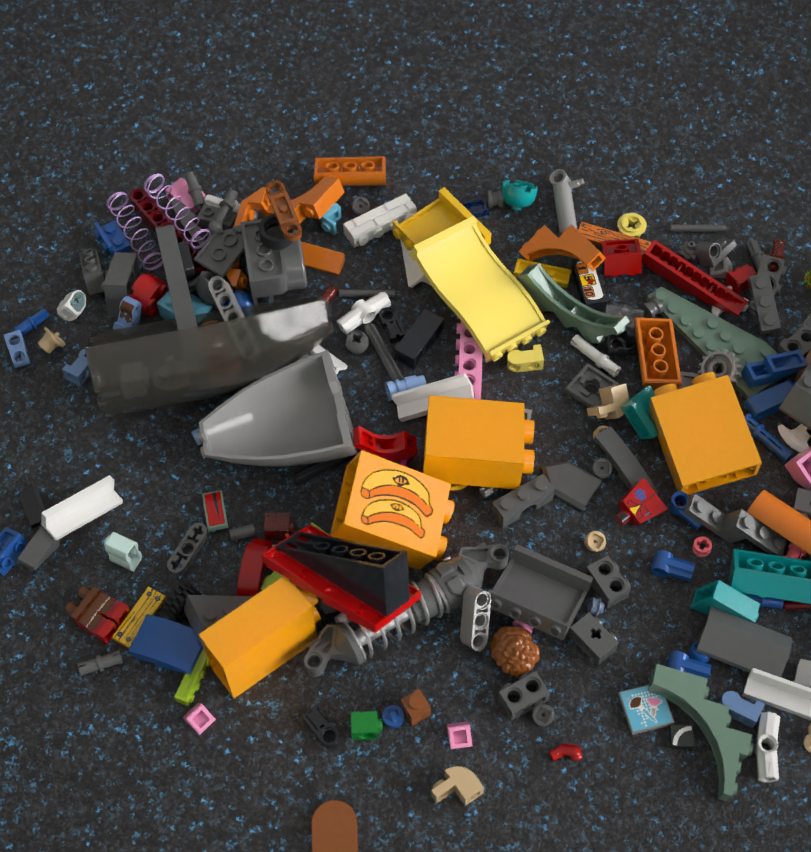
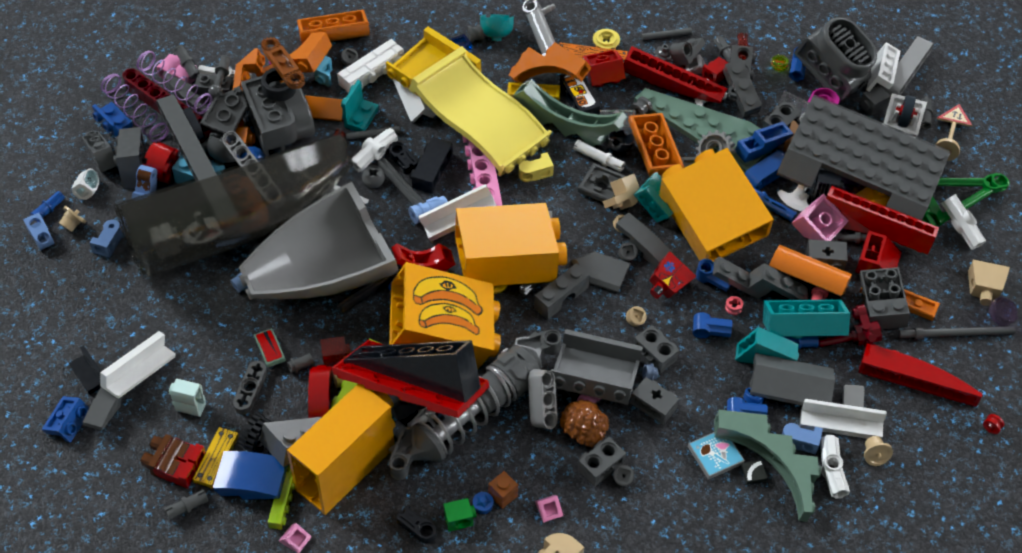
camera: 15 degrees left, 5 degrees down
(355, 267) = (357, 111): none -> teal bracket
(566, 749) = (651, 502): red arm -> none

